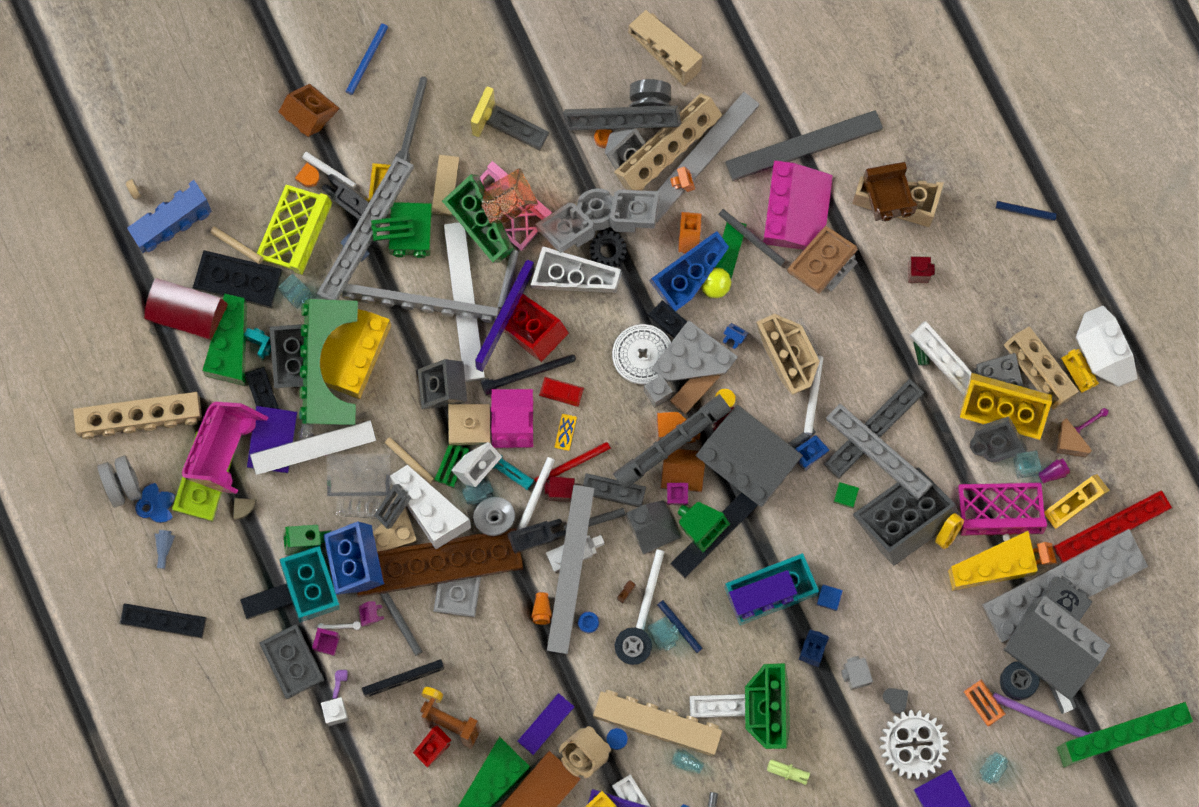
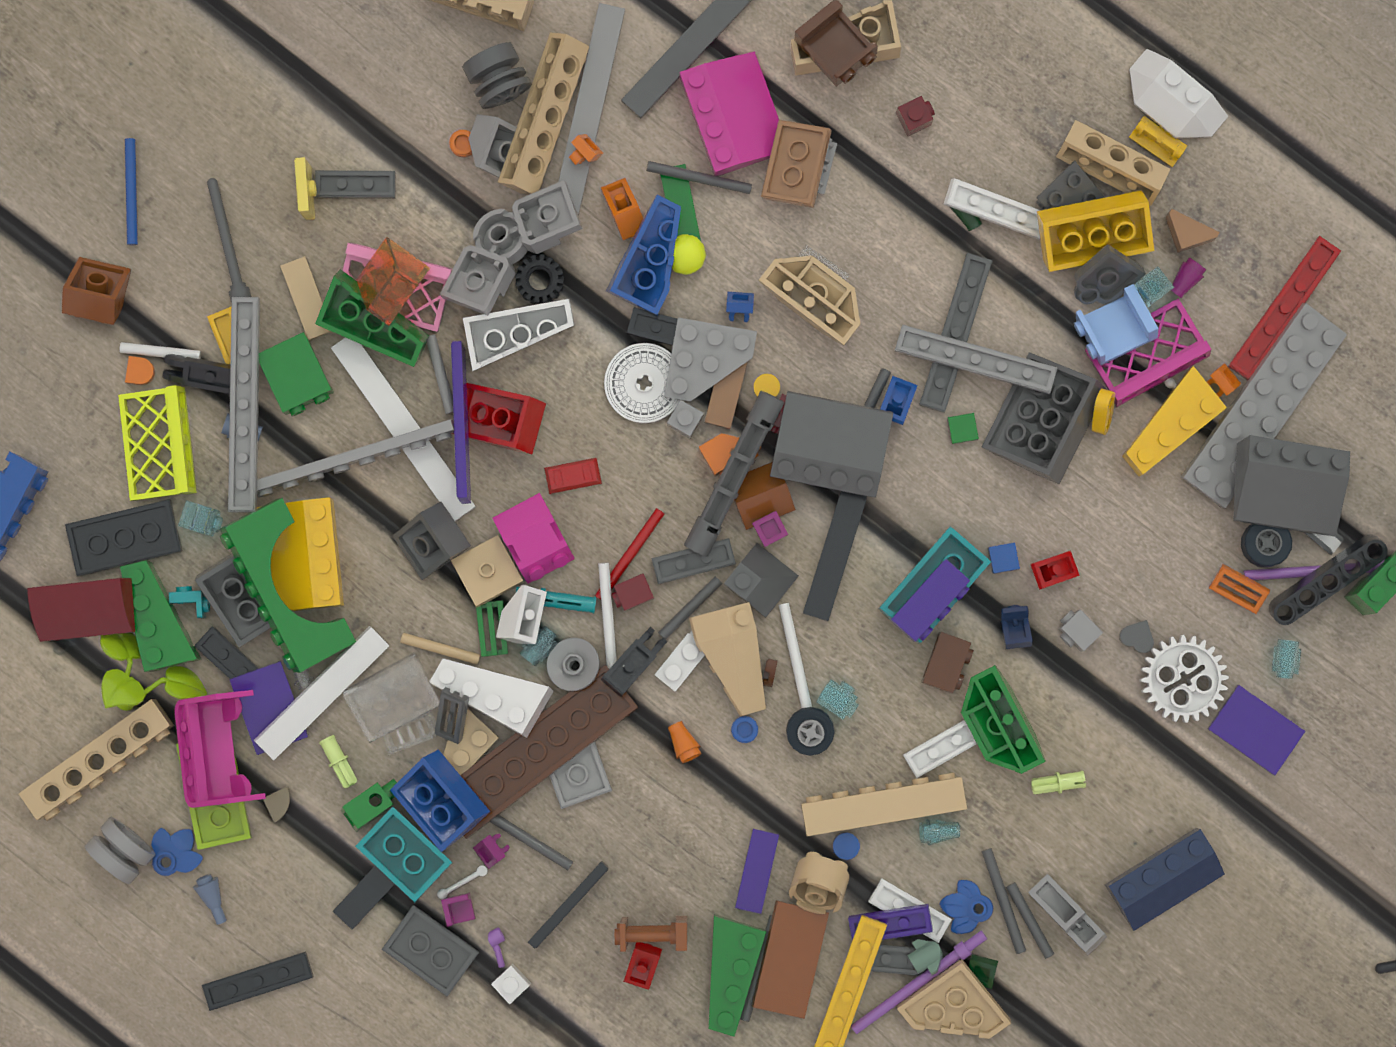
camera: 25 degrees left, 10 degrees up
(179, 368) = (127, 692): none -> lime plant
(236, 245) = (100, 498): tan bar -> none
(299, 500) = (338, 761): none -> yellowish green axle
(409, 226) = (293, 374): green tile -> none
(429, 692) = (611, 905): yellow tile -> none
(488, 385) = (488, 511): black piece -> none
(565, 432) = (602, 520): yellow sticker -> none
(570, 569) = (693, 680): light grey tile -> none
(608, 562) = (732, 649): none -> tan wedge
(622, 117) = (475, 113): dark grey tile -> none
(682, 629) = (851, 680): dark blue bar -> none
(702, 524) = (816, 550): green torso -> none
(752, 648) = (947, 663): none -> reddish brown brick
(813, 399) = (869, 337): white bar -> none
(860, 622) = (1054, 570): none -> red slope
(988, 479) = (1117, 327): none -> light blue panel
(1059, 720) = (1341, 579): none -> black beam
(1067, 597) = (1274, 422): dark grey brick -> none
(1076, 501) = (1229, 299): yellow slope -> none
(1103, 413) = (1208, 177): magenta hinge -> none

